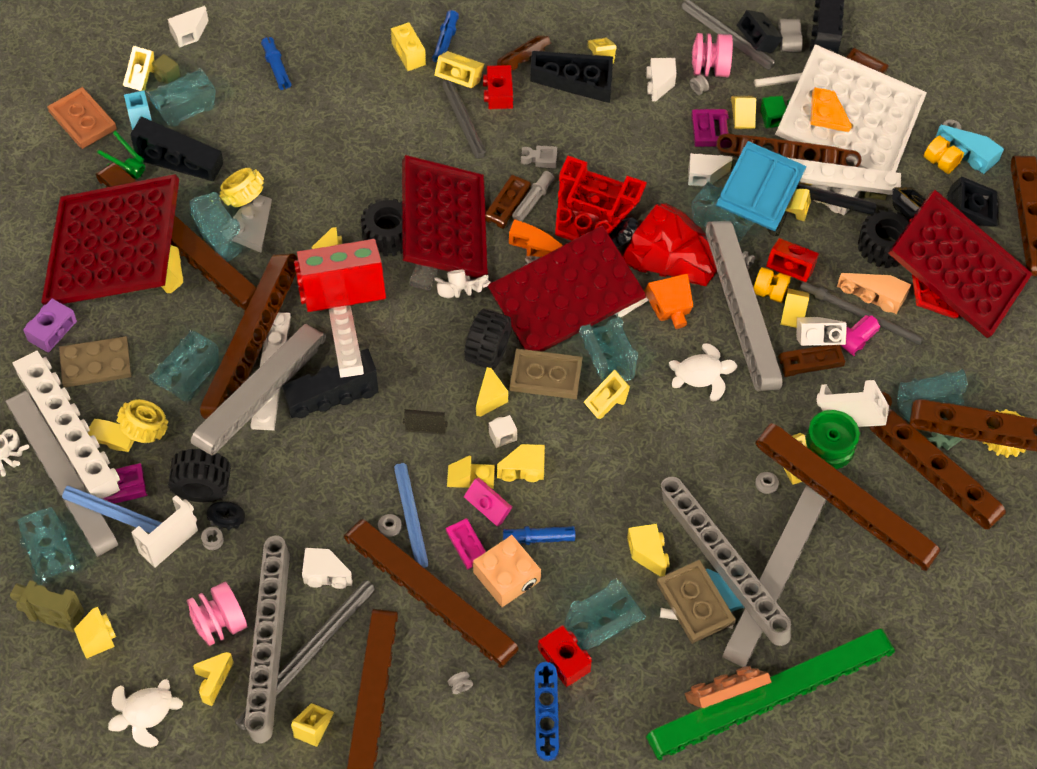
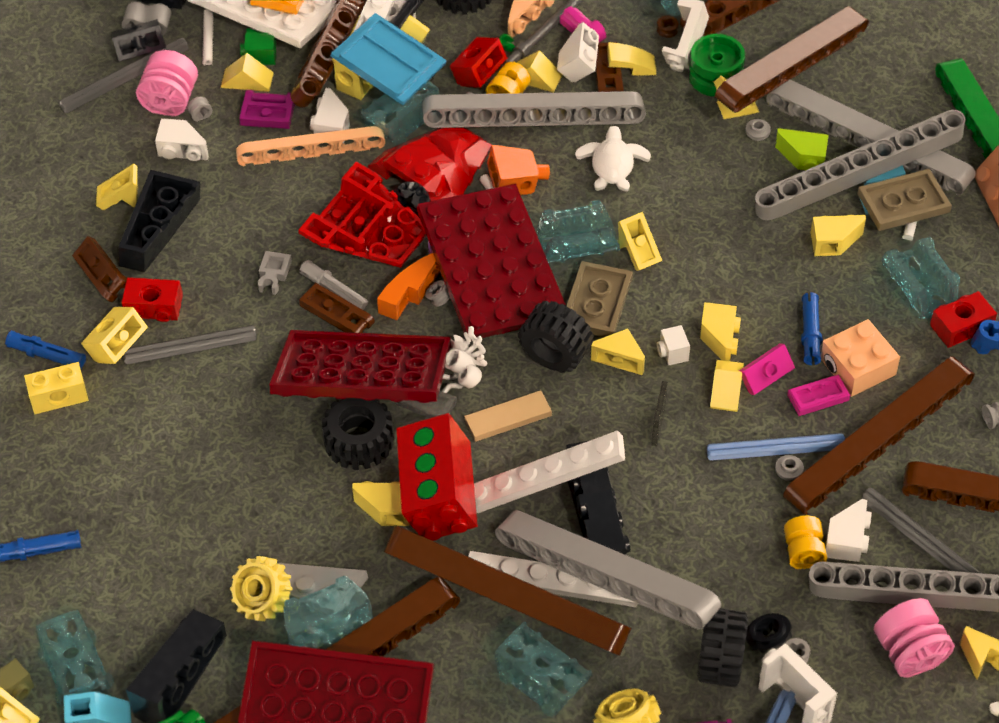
camera: 80 degrees left, 5 degrees down
(310, 535) = (805, 542): none -> yellow wheel
(421, 325) = (508, 416): none -> tan tile
(674, 158) = (310, 143): none -> light nougat beam
(745, 520) = (802, 148): none -> lime slope
(825, 278) = (506, 40): none -> green hand
(827, 371) = (631, 57): none -> light yellow slope

